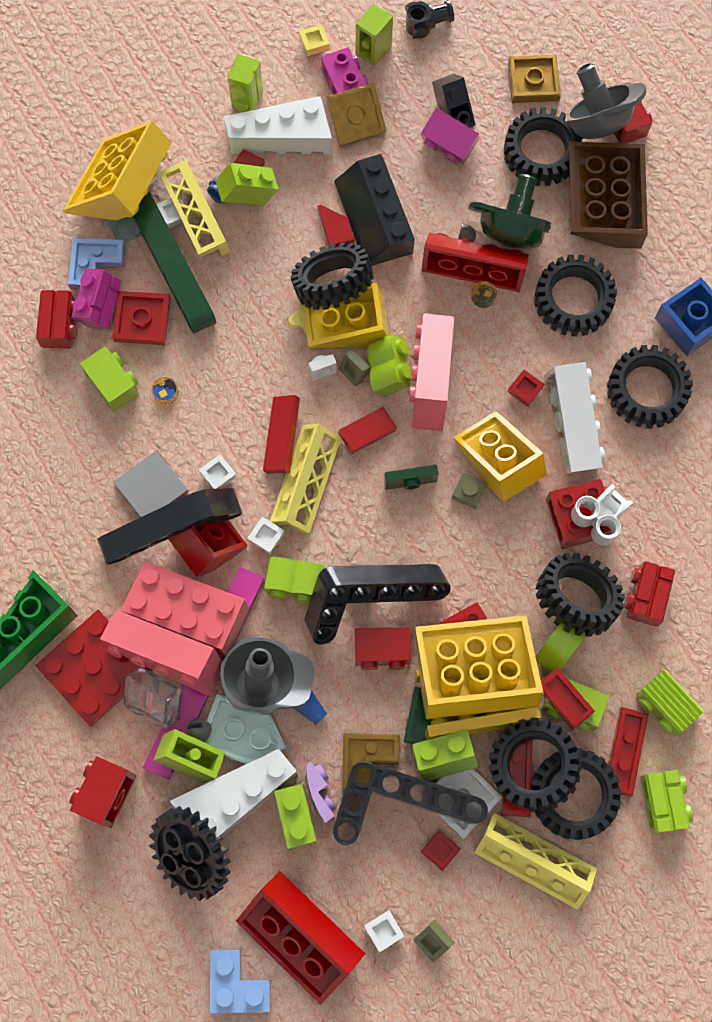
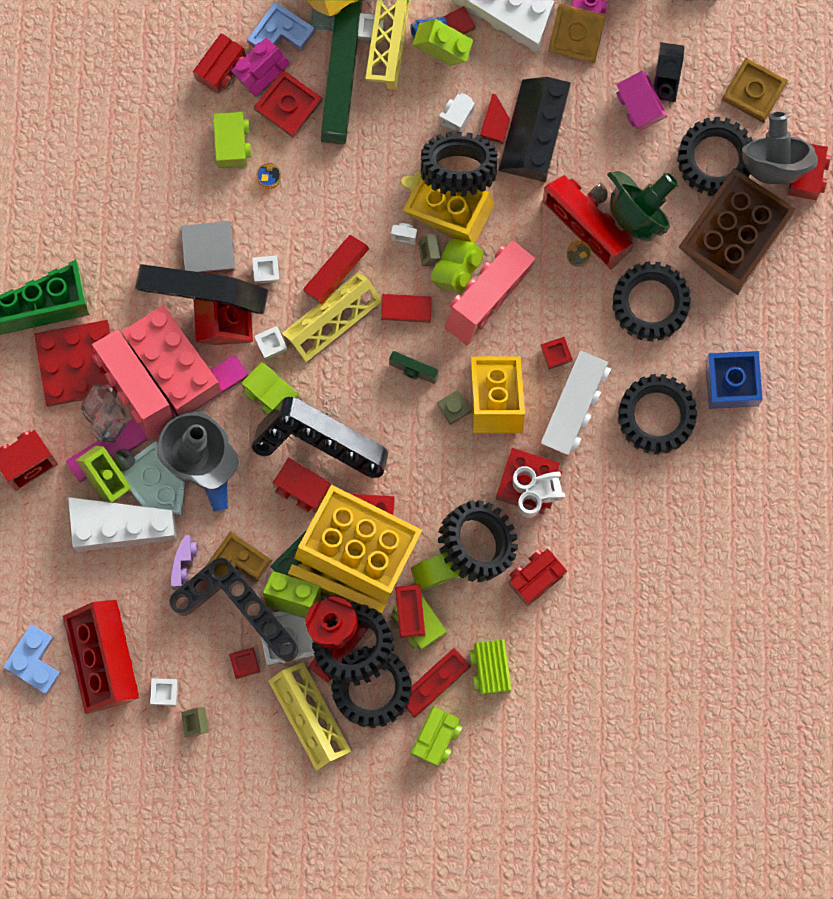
camera: 35 degrees right, 5 degrees up
(189, 853) = (58, 543): black gear -> none
(295, 816) = (153, 569): lime brick -> none
(298, 238) = (457, 113): none -> white brick
(518, 766) = (331, 636): none -> red plate

